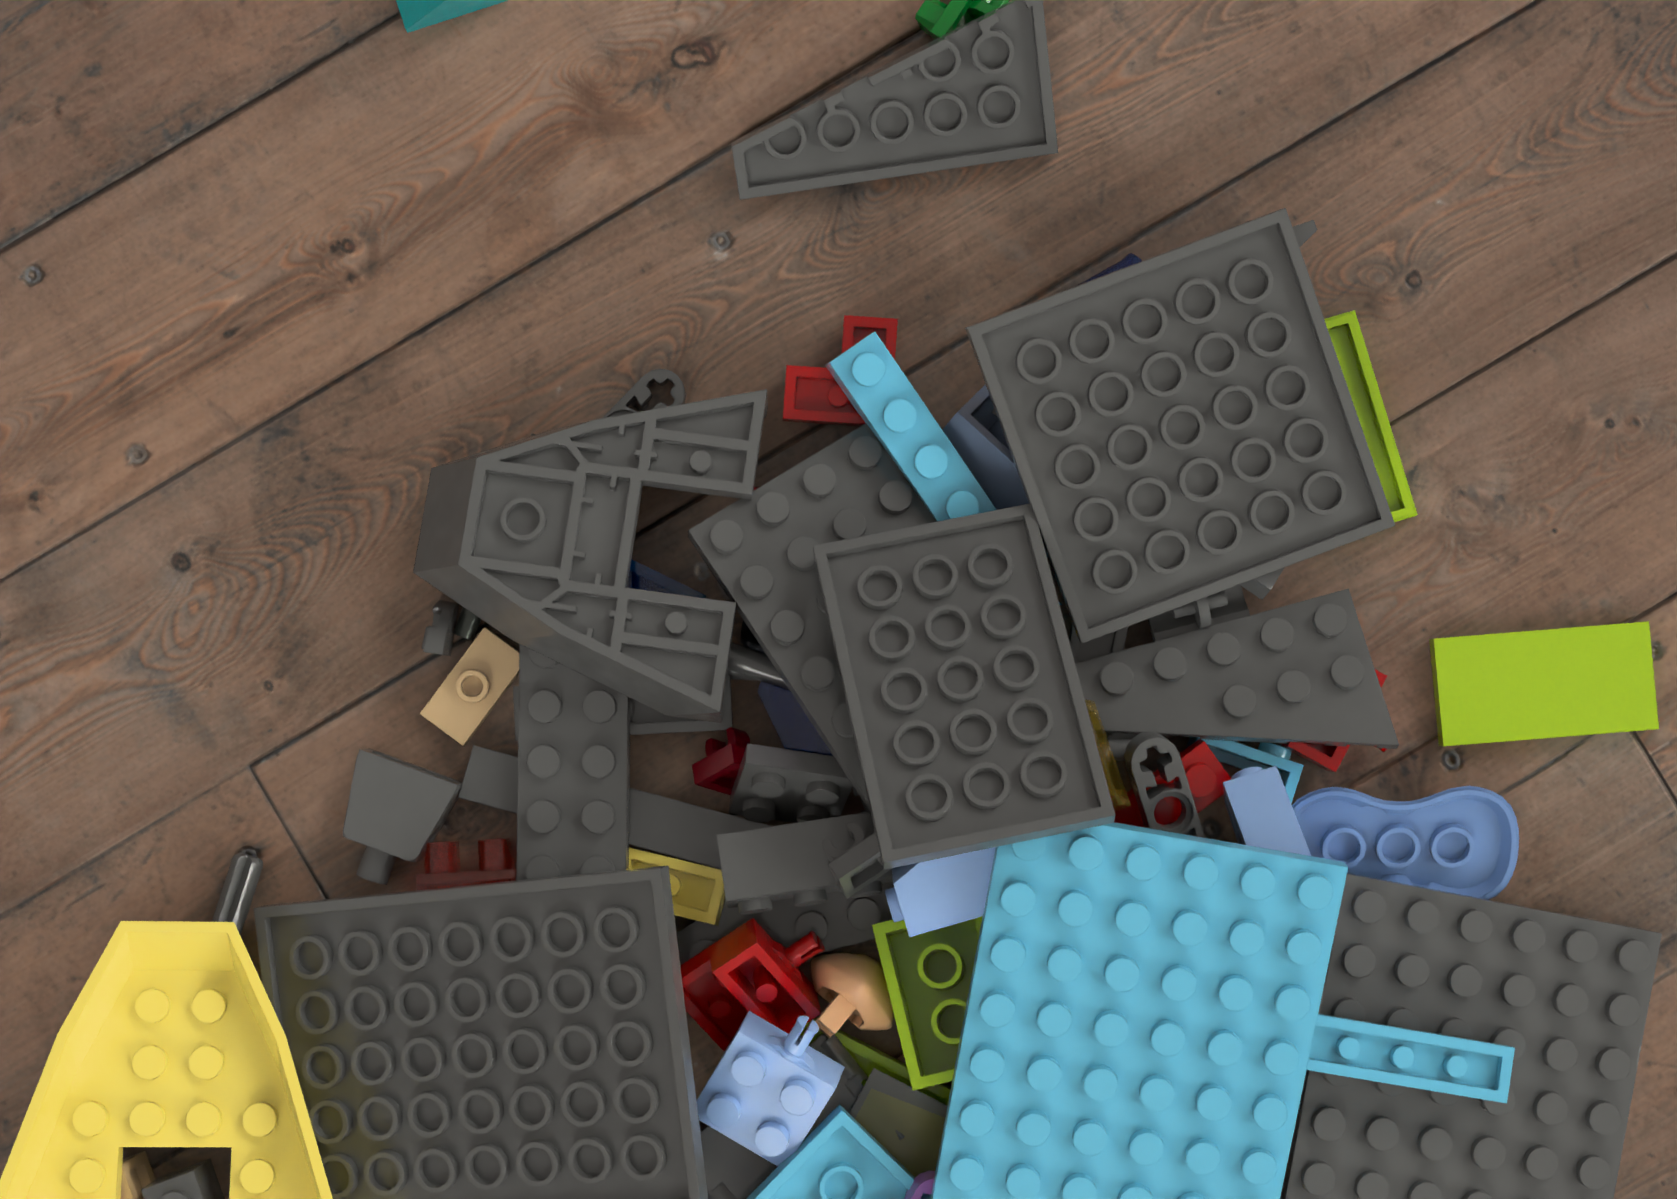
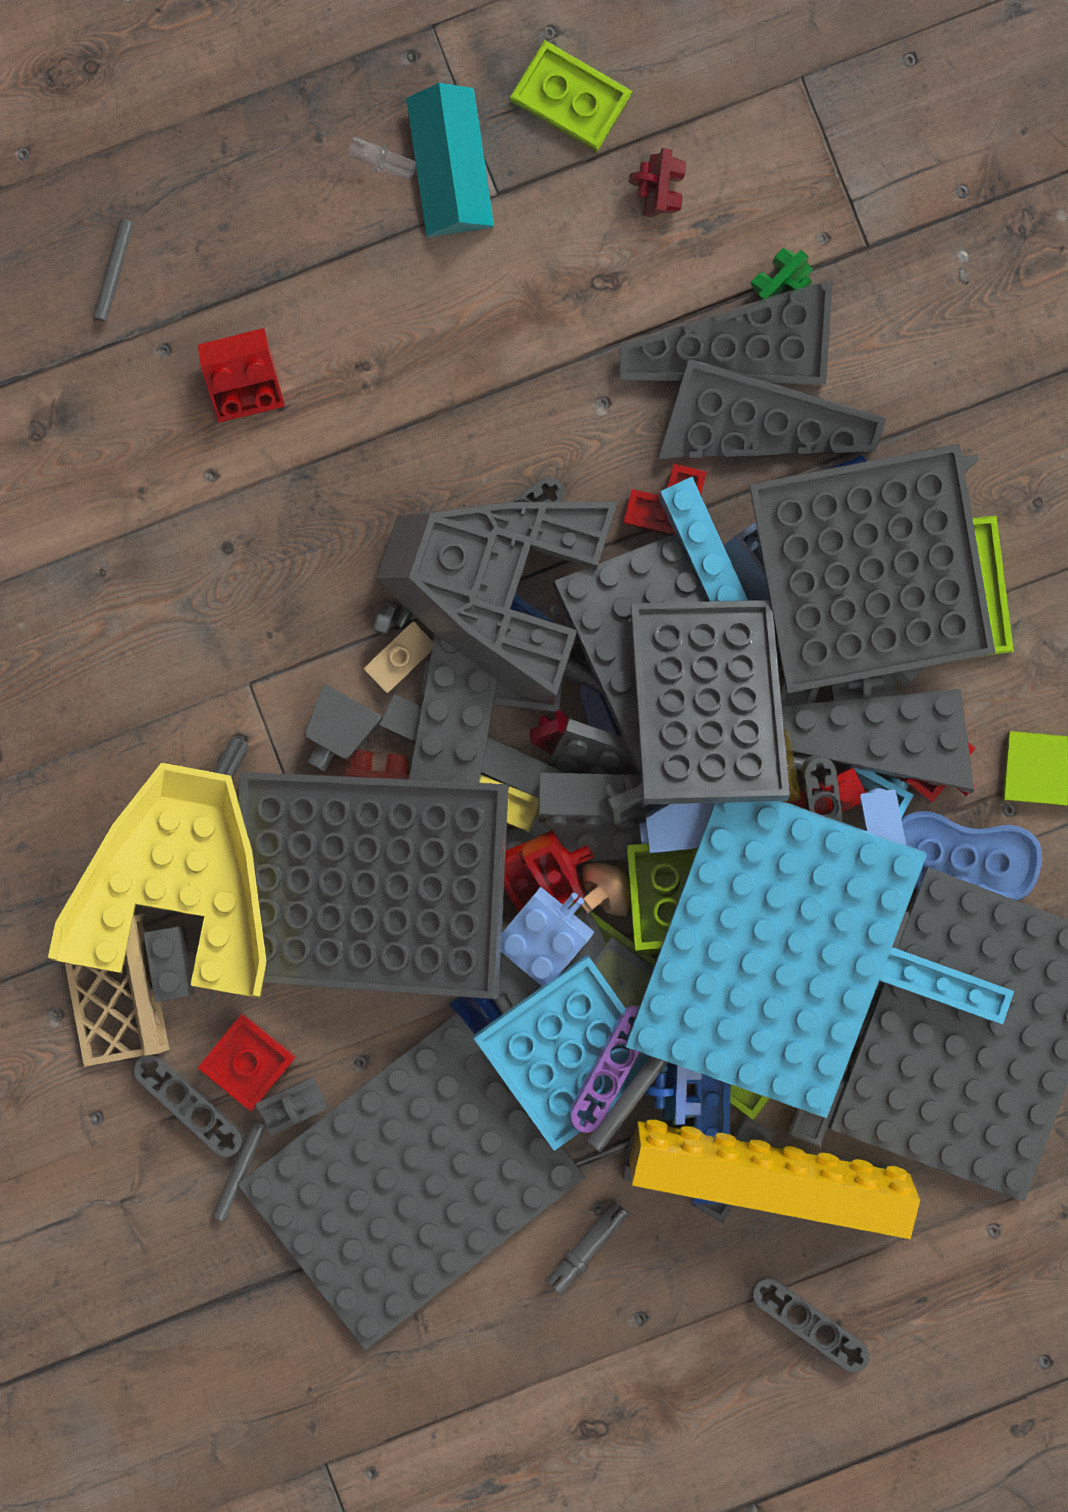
camera: 10 degrees right, 0 degrees up
(153, 292) = (240, 375): none -> red slope
(945, 223) = (746, 416): none -> dark grey wing

